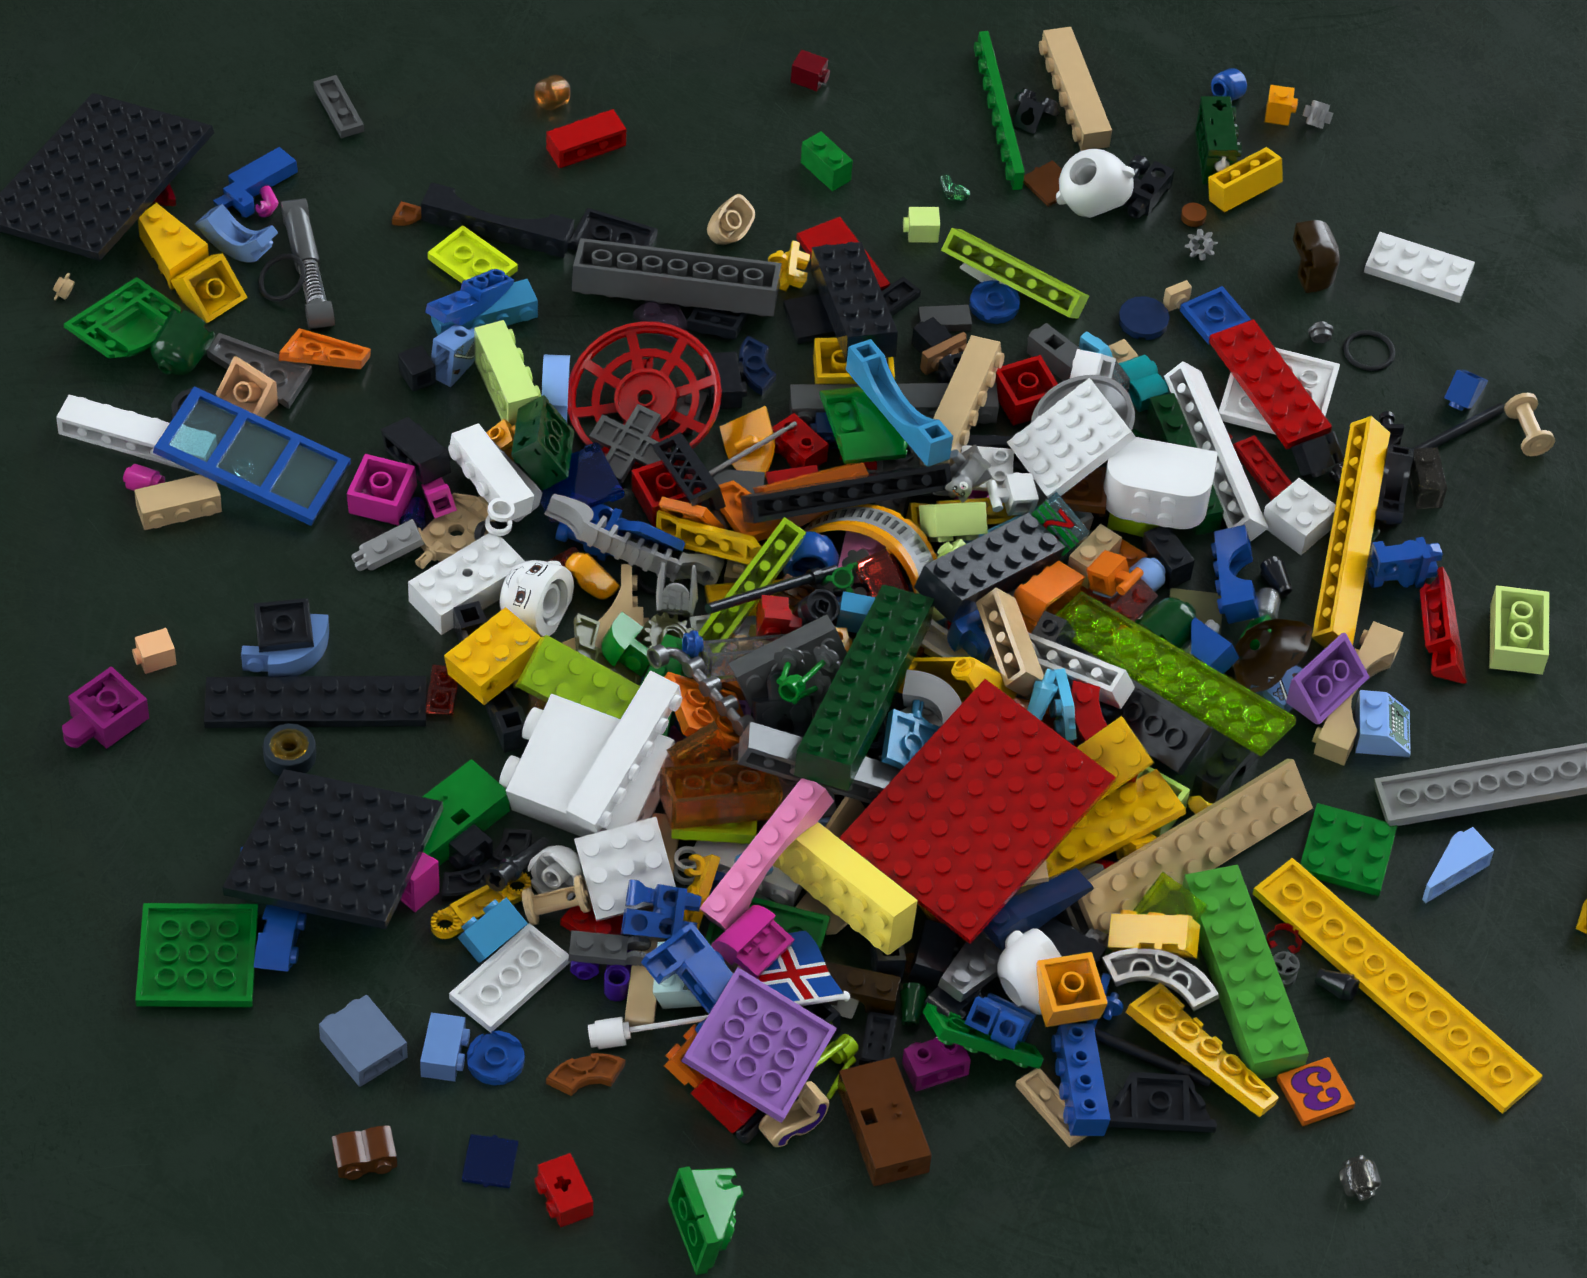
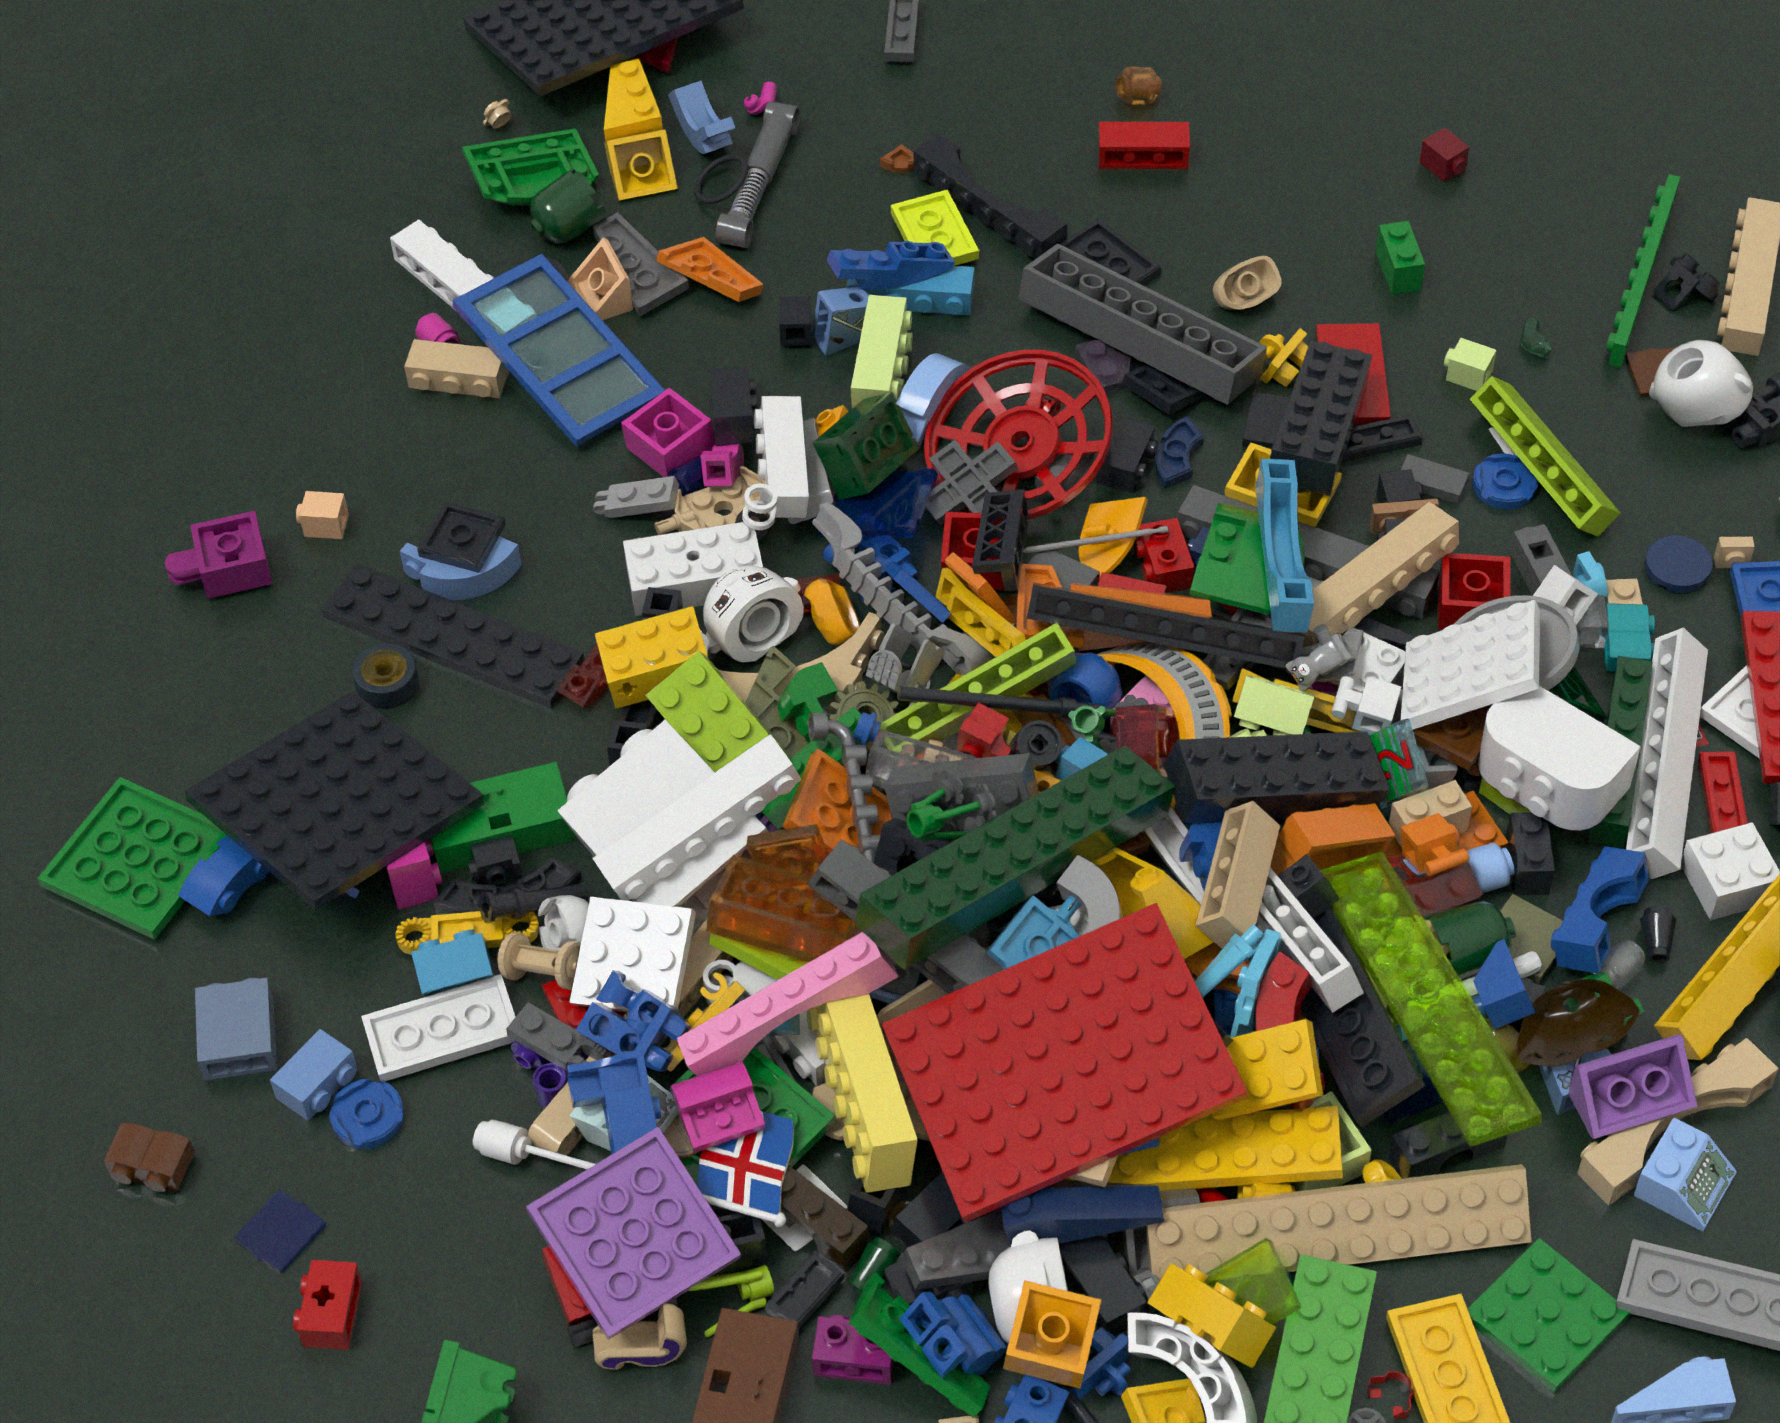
camera: 35 degrees right, 0 degrees up
(248, 180) = (753, 71): blue piece -> none
(587, 1070) = (452, 1174): dark orange tile -> none

